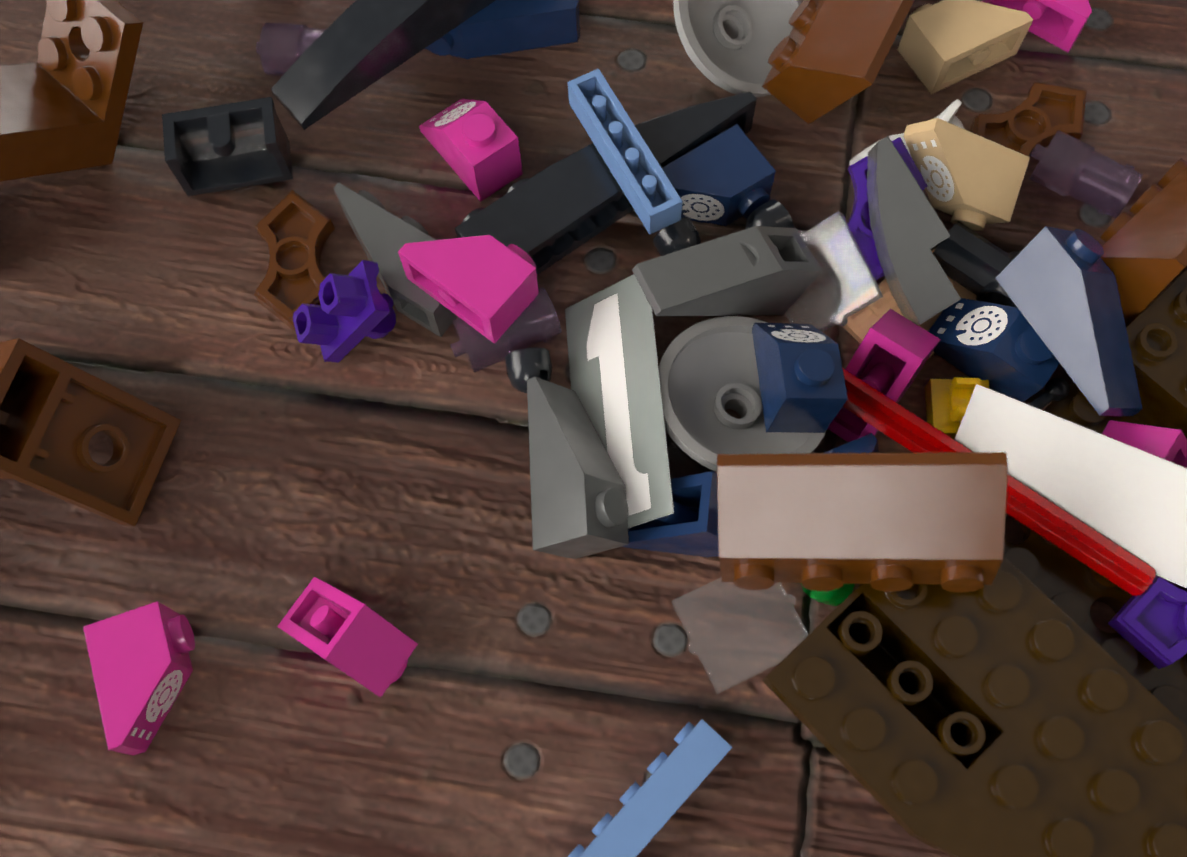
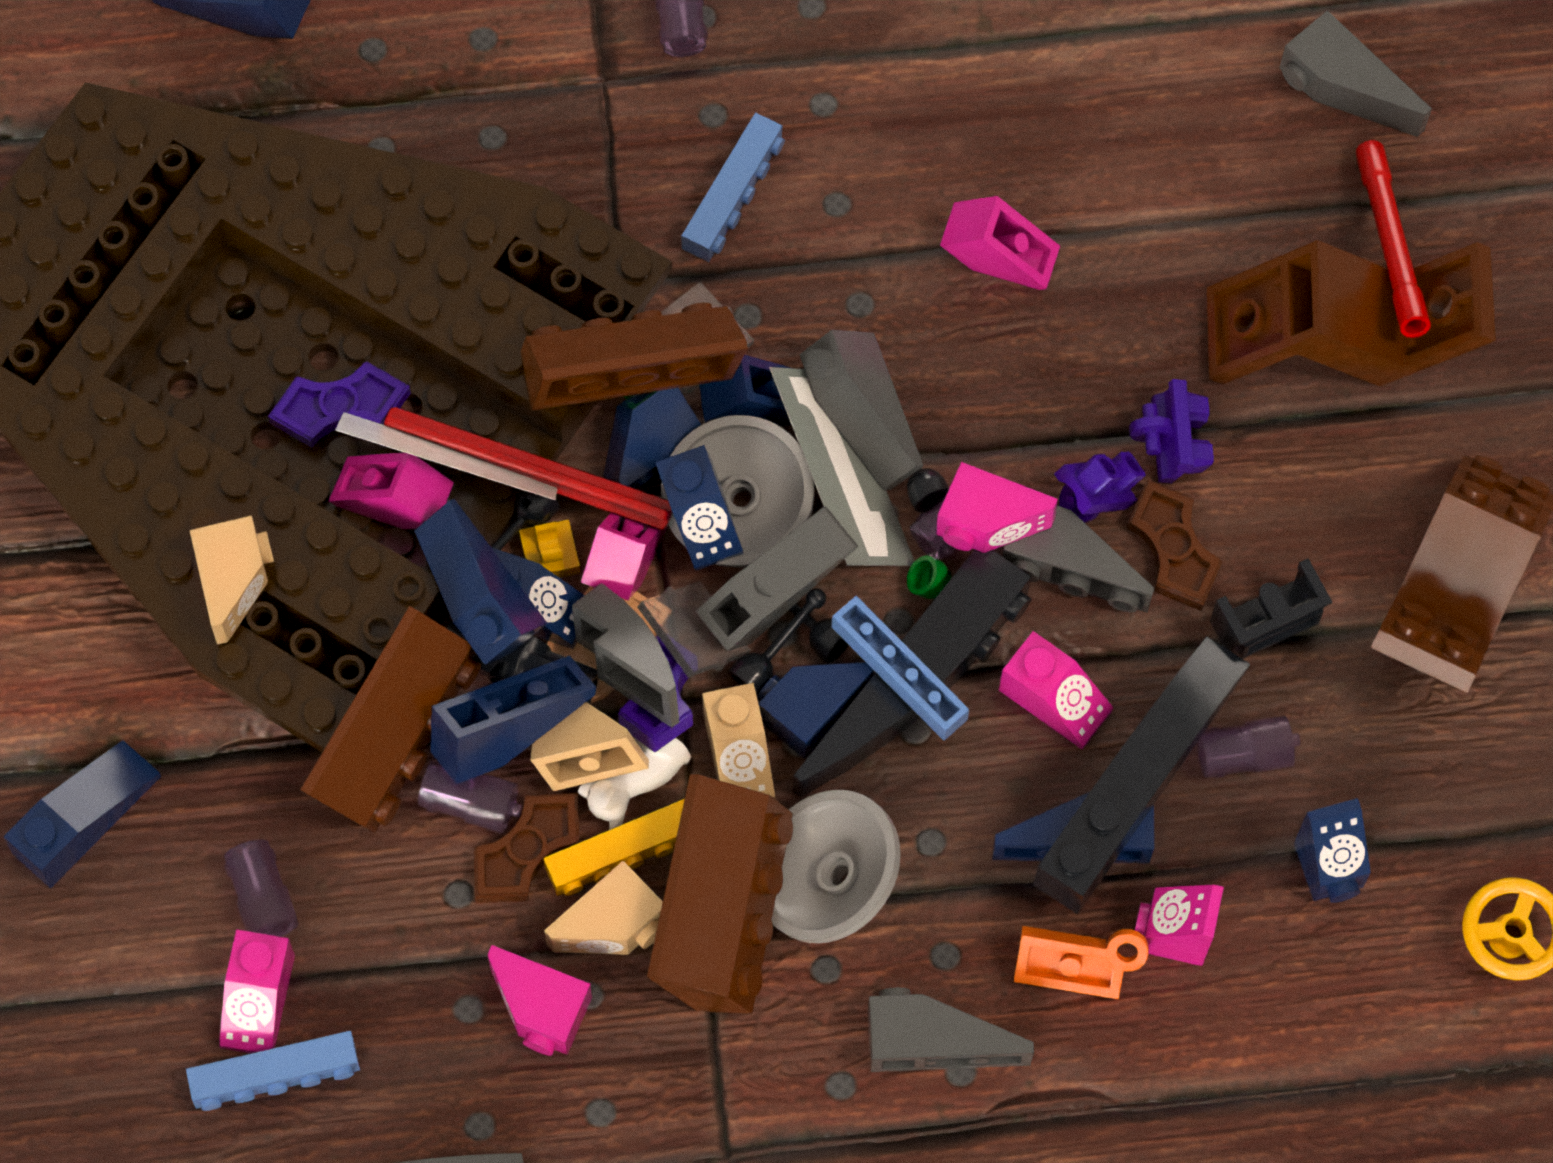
camera: 160 degrees right, 0 degrees up
(138, 671) = (1149, 183): dark pink slope -> none
(245, 362) = (1167, 432): none -> dark purple hips
(564, 281) = (928, 577): none -> green hinge
(803, 166) = (738, 738): none -> tan slope
(894, 107) = (599, 855): none -> yellow piece
(1050, 197) = (504, 718): none -> dark blue slope

